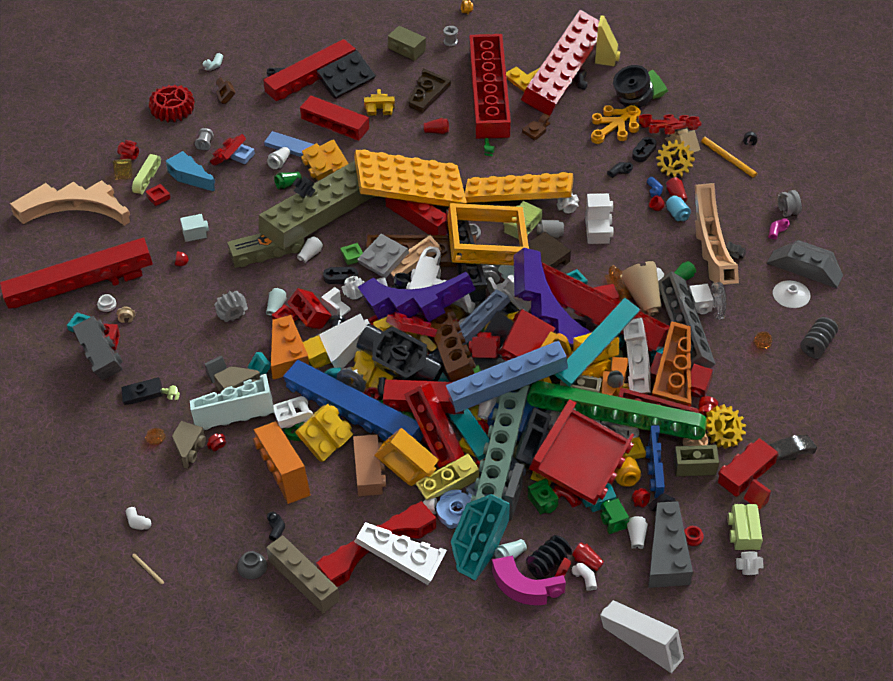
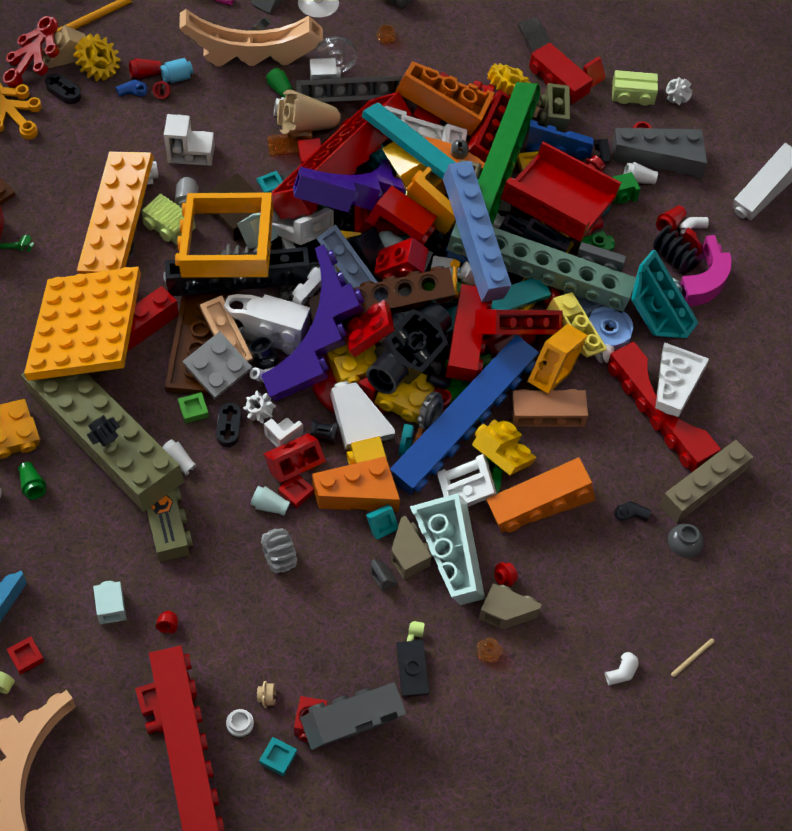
camera: 90 degrees left, 10 degrees up
(620, 168) = (91, 114): black arm -> none

